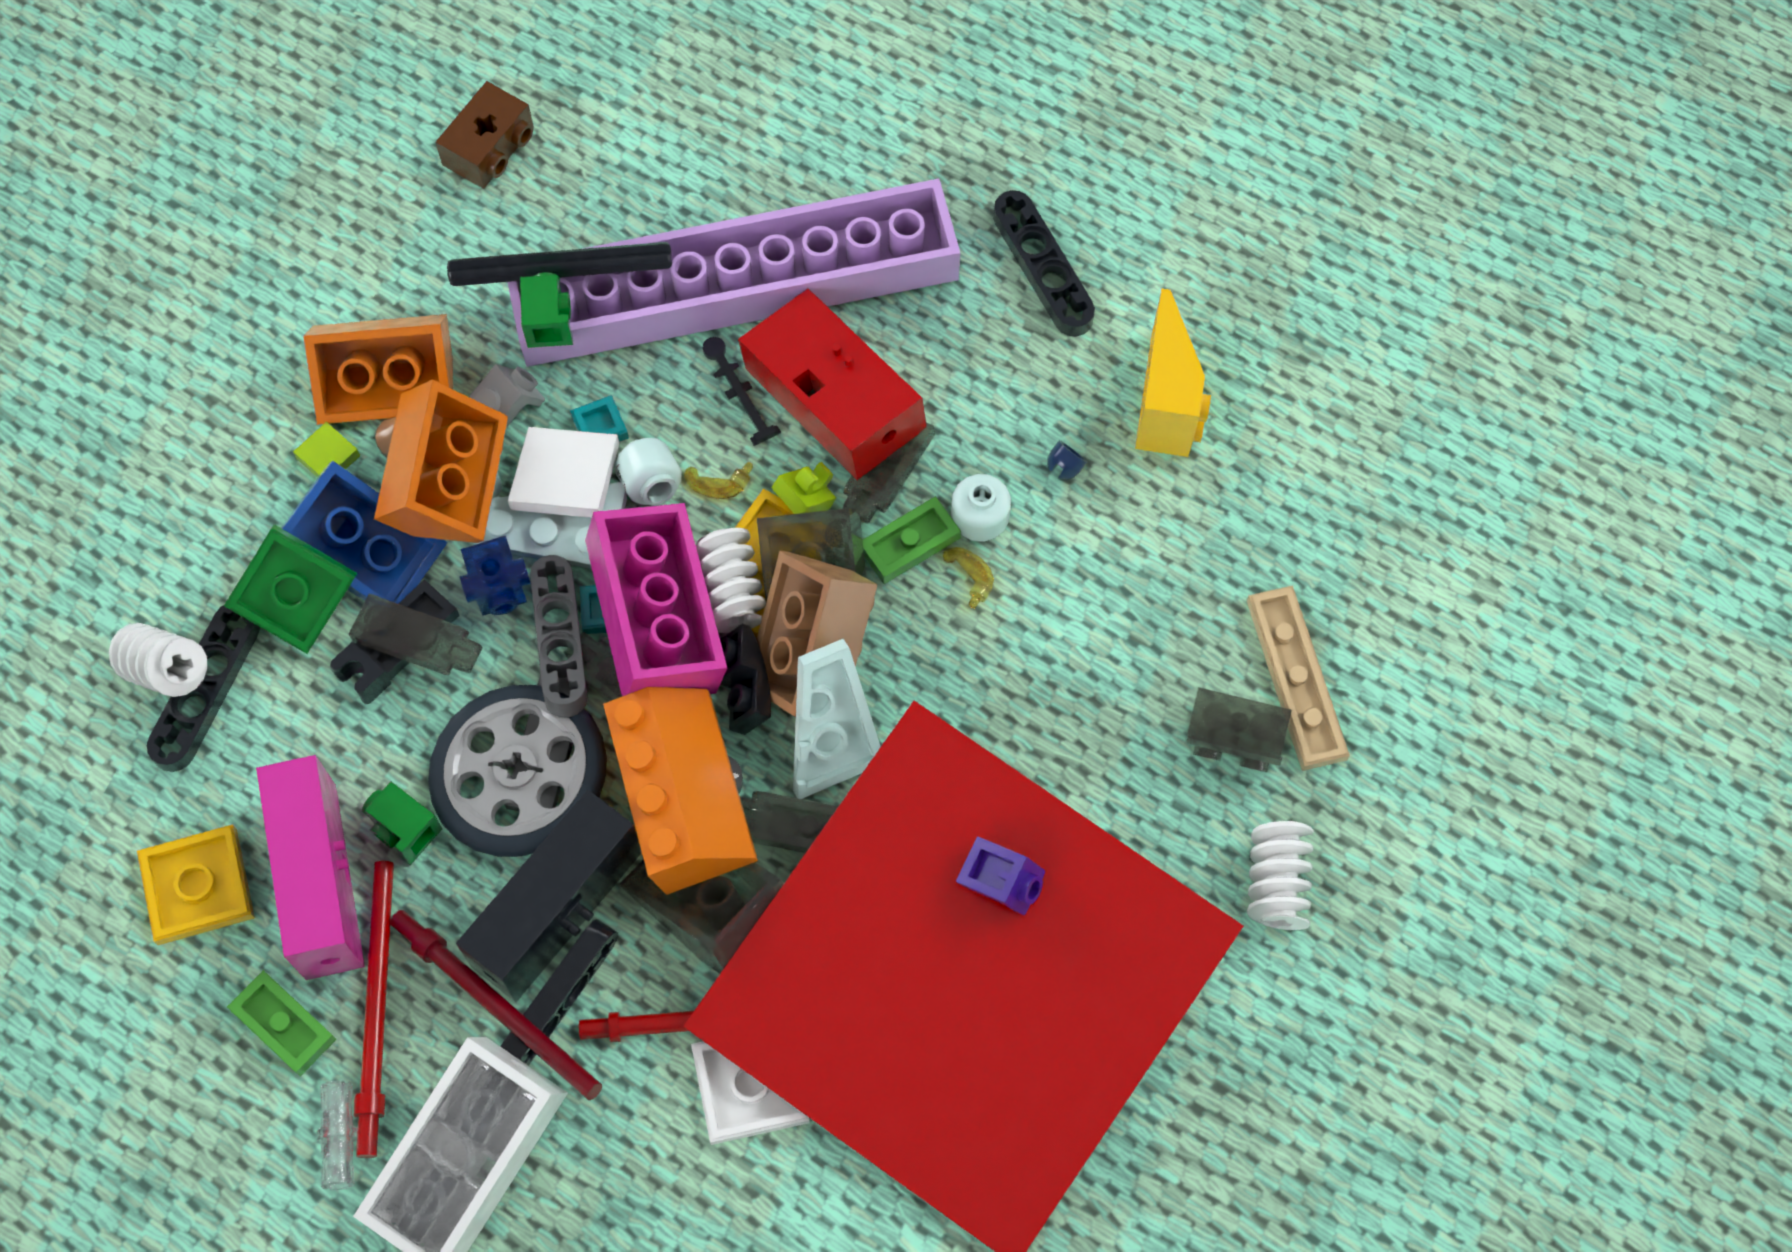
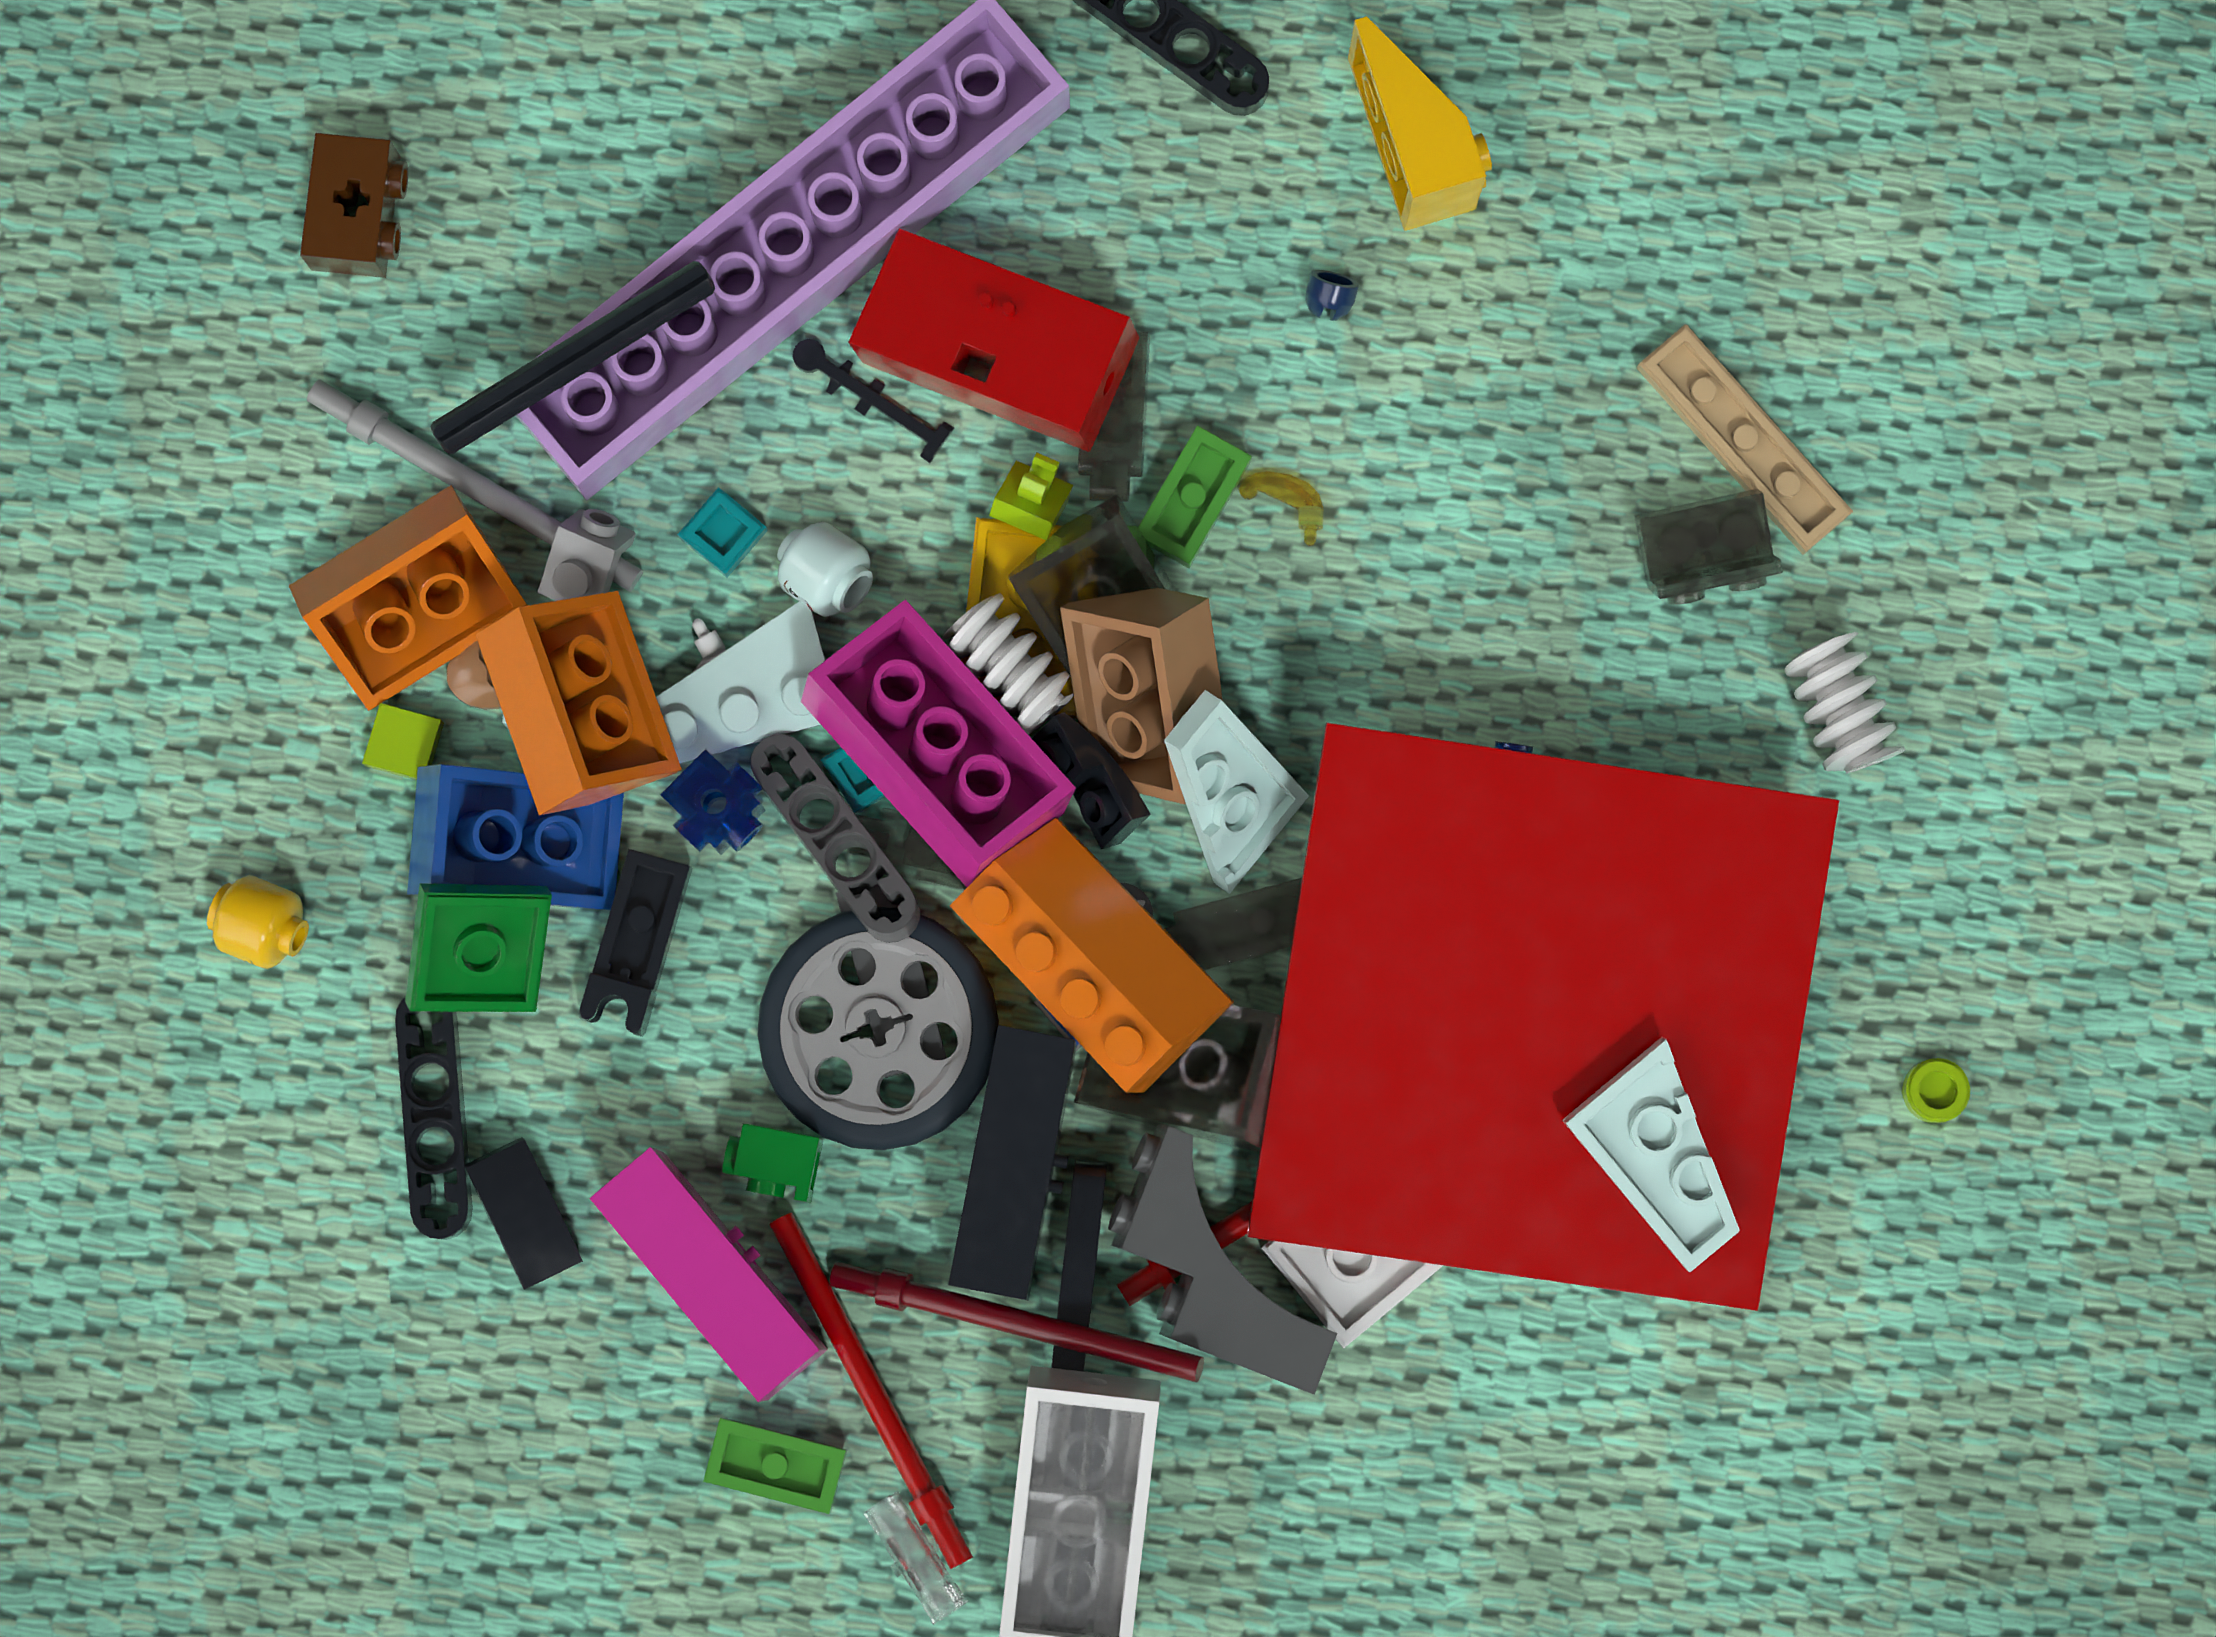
camera: 25 degrees left, 15 degrees up
(157, 659) = (368, 1117): white piece -> none
(168, 511) = (257, 921): none -> yellow head
(195, 884) = (571, 1356): yellow tile -> none
(219, 773) = (523, 1213): none -> black slope
(414, 636) = (663, 929): clear smoke hinge -> none
(423, 264) = (372, 424): none -> light grey bar
(545, 311) = (595, 433): green brick -> none
(563, 472) = (723, 625): white tile -> none
(635, 1061) = (1213, 1301): none -> dark grey arch
(717, 487) = (915, 542): clear yellow piece -> none
(981, 507) = (1247, 429): light aqua head -> none
(994, 1111) = (1653, 1151): none -> light aqua wing
(1002, 875) = (1536, 885): dark purple bracket -> none
(1221, 1175) = (1936, 1090): none -> lime tile

